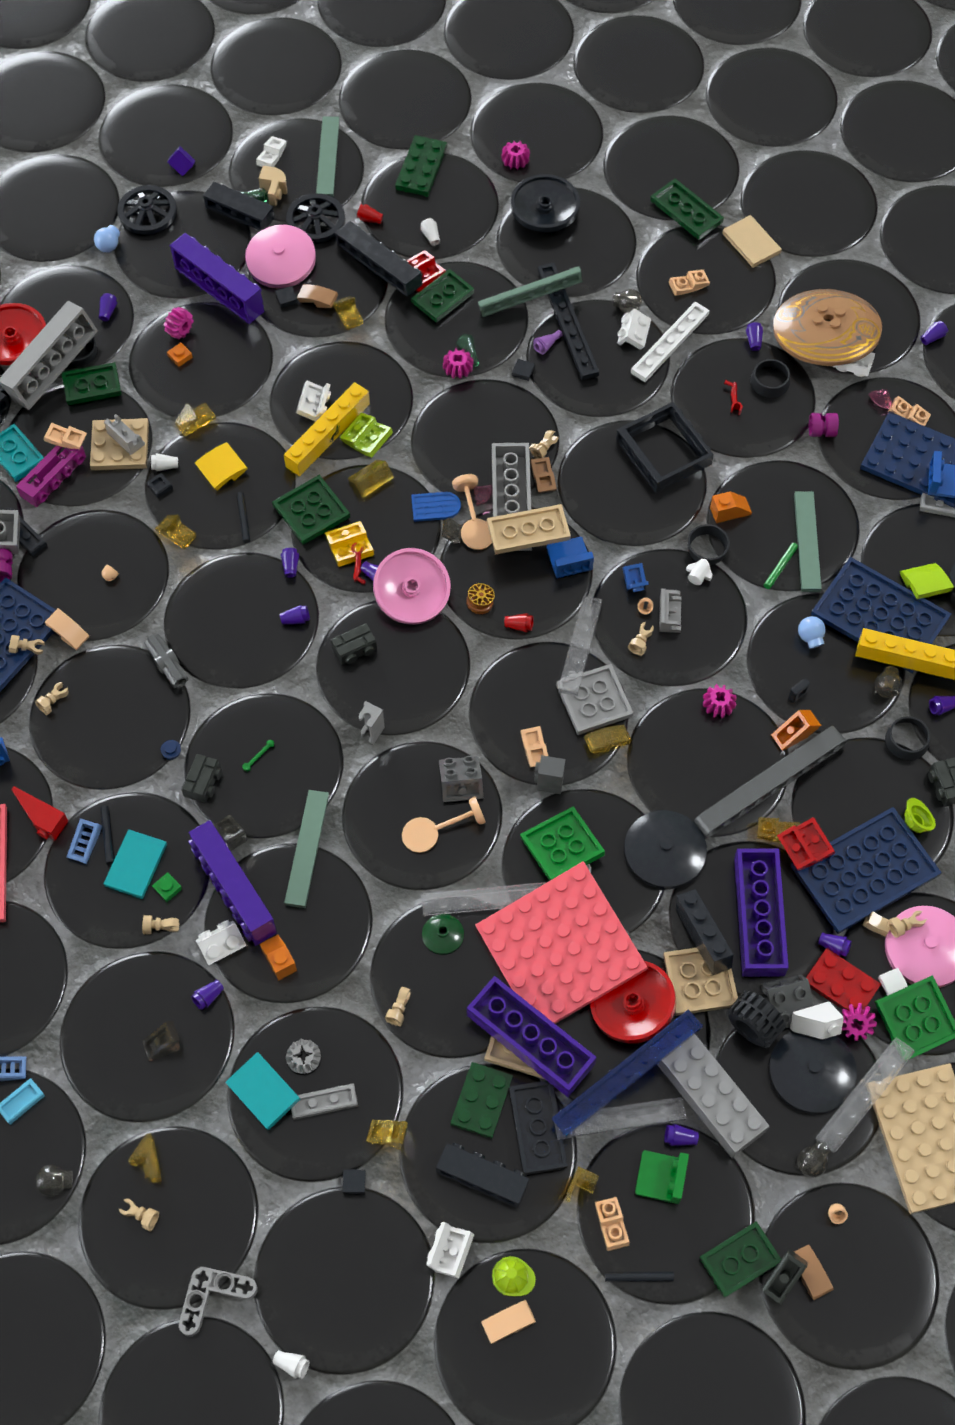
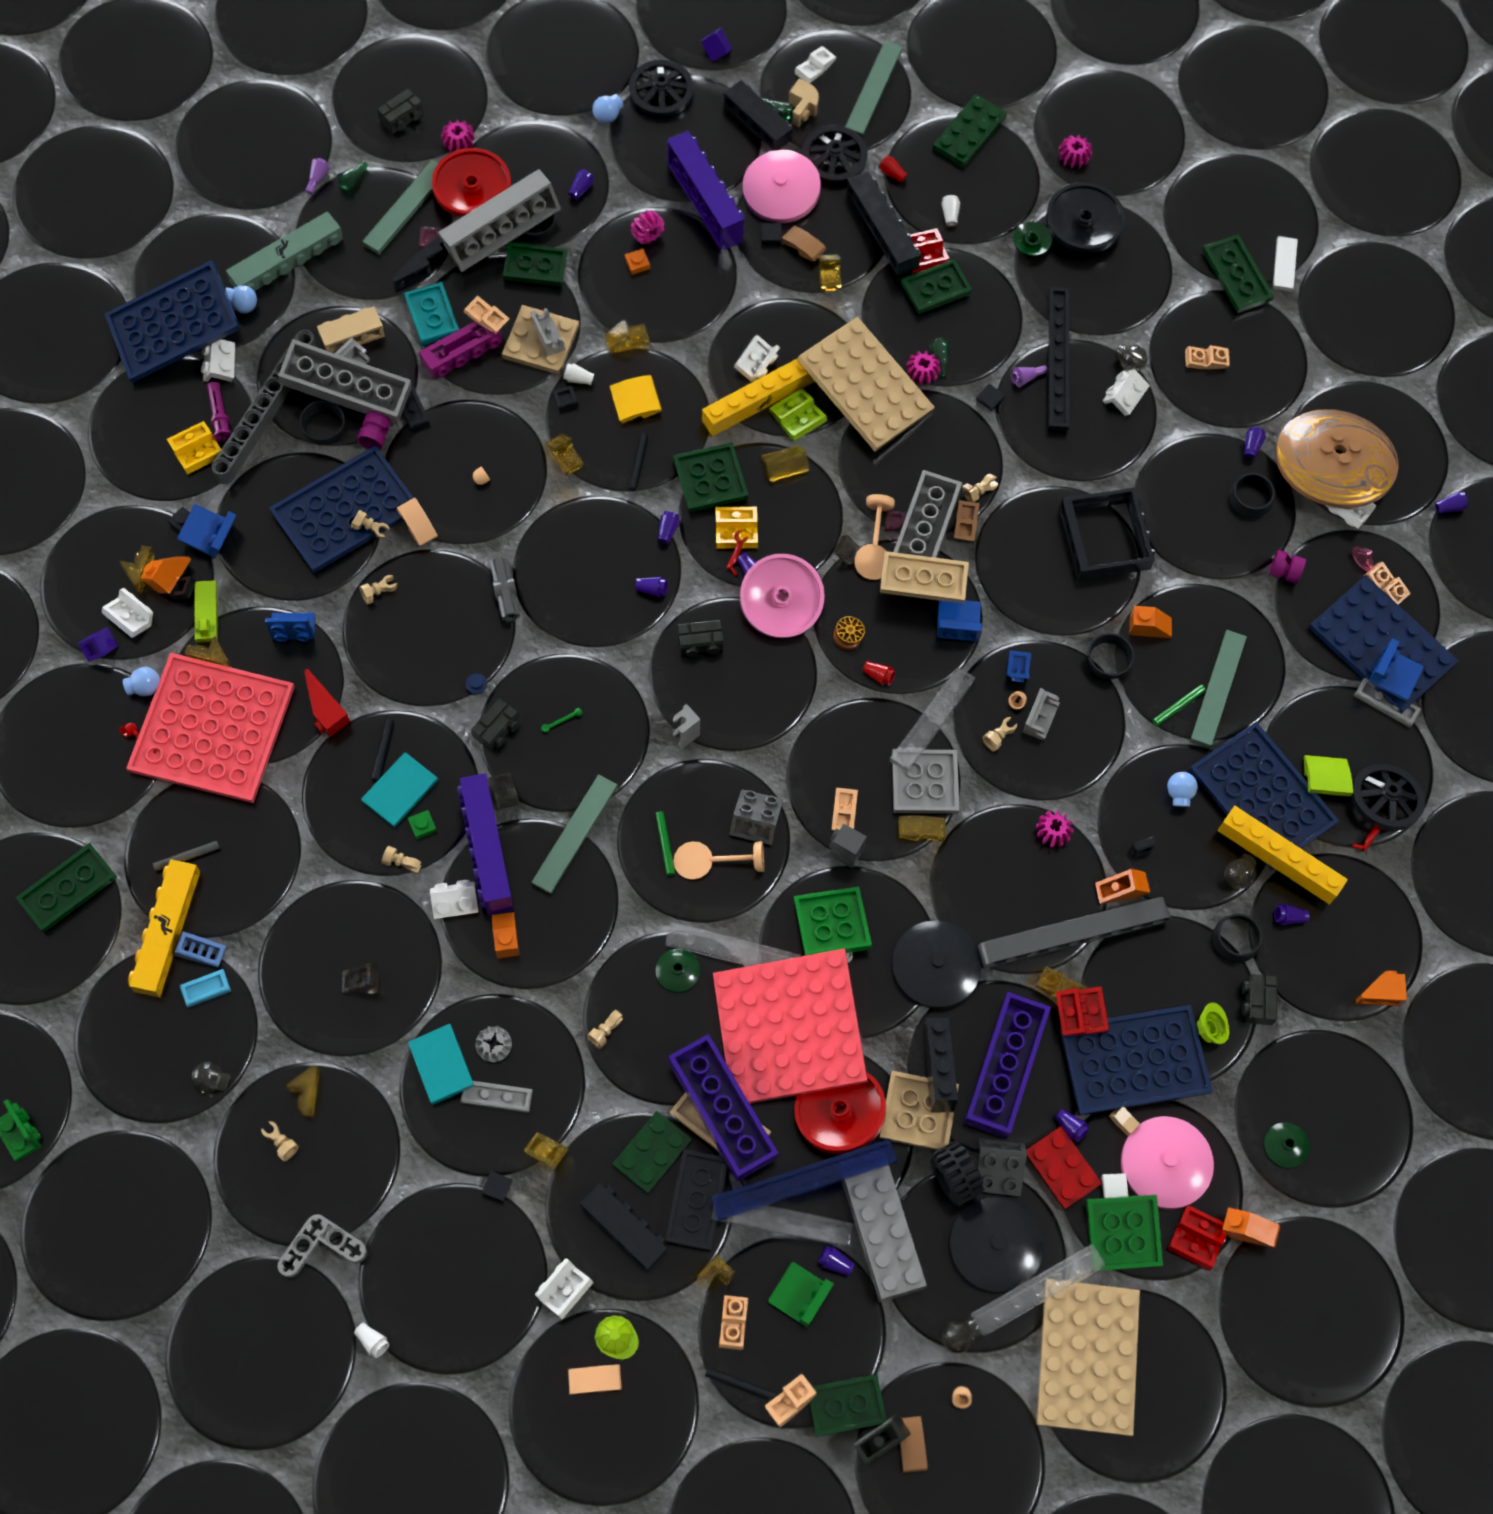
camera: 15 degrees right, 5 degrees up
(77, 839) = (369, 746): medium blue slope -> none
(207, 994) = (420, 948): dark purple cone -> none
(390, 829) = (665, 845): none -> green bar
(415, 390) = (866, 383): none -> tan plate
(435, 506) = (840, 516): blue window -> none
(507, 233) = (1034, 233): none -> dark green dish
(530, 291) = (1030, 313): sand green tile -> none
(669, 341) = (1159, 418): white plate -> none
(690, 1274) = (791, 1400): none -> light nougat slope
(699, 572) = (1089, 682): white piece -> none
(721, 190) = (1284, 264): none -> white tile
(735, 404) = (1202, 511): red piece -> none
(751, 241) = (1294, 333): tan tile -> none
(818, 1021) = (1019, 1198): white slope -> none
(861, 1015) = (1065, 1207): dark pink gear -> none
(899, 927) = (1141, 1132): tan piece -> none

